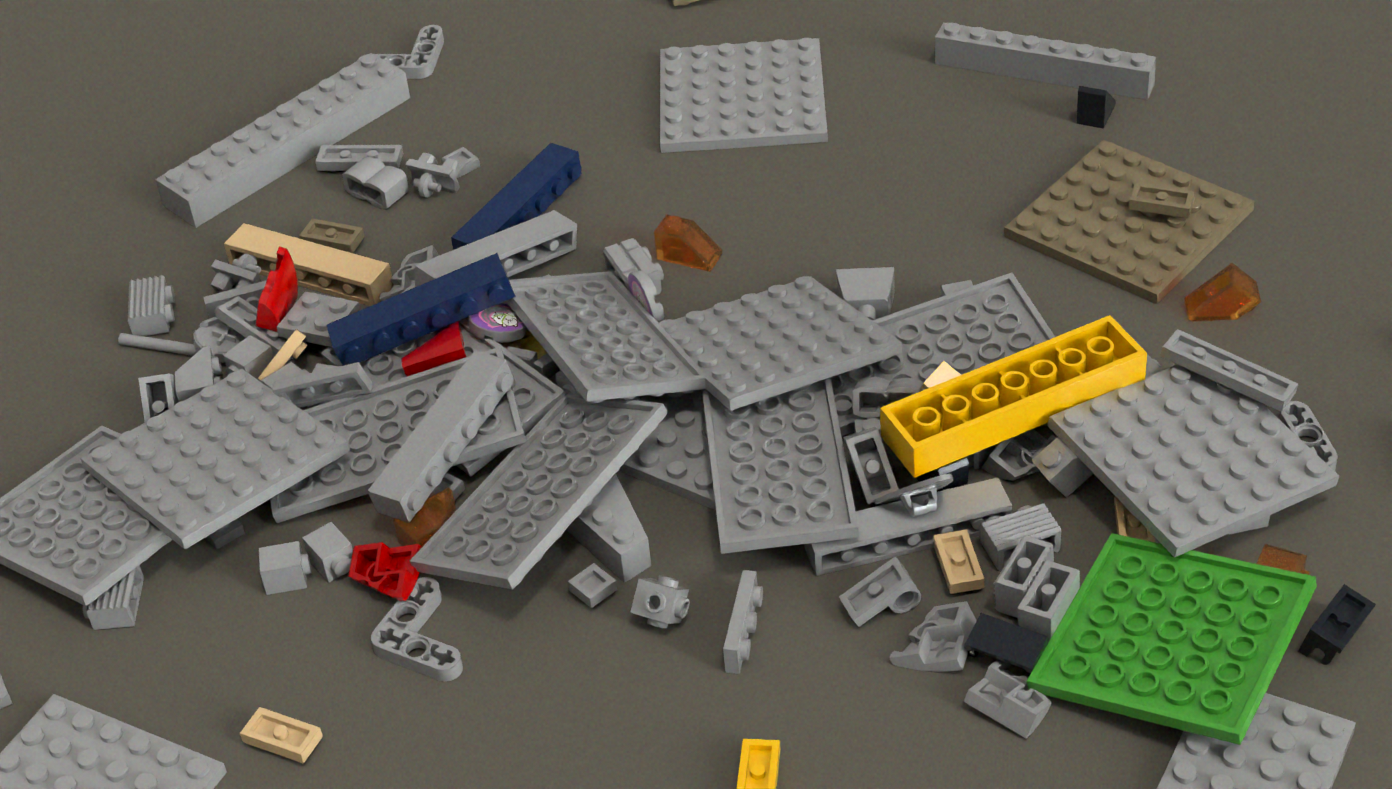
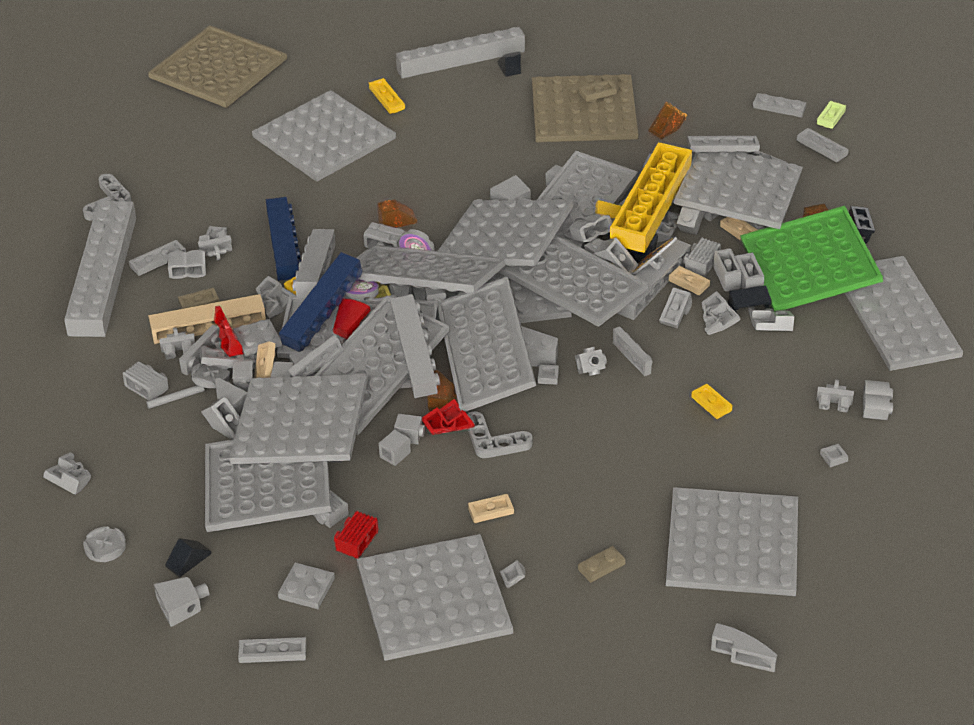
camera: 45 degrees left, 0 degrees up
(92, 660) = (356, 534): none -> red brick
(878, 78) = (386, 96): none -> yellow plate

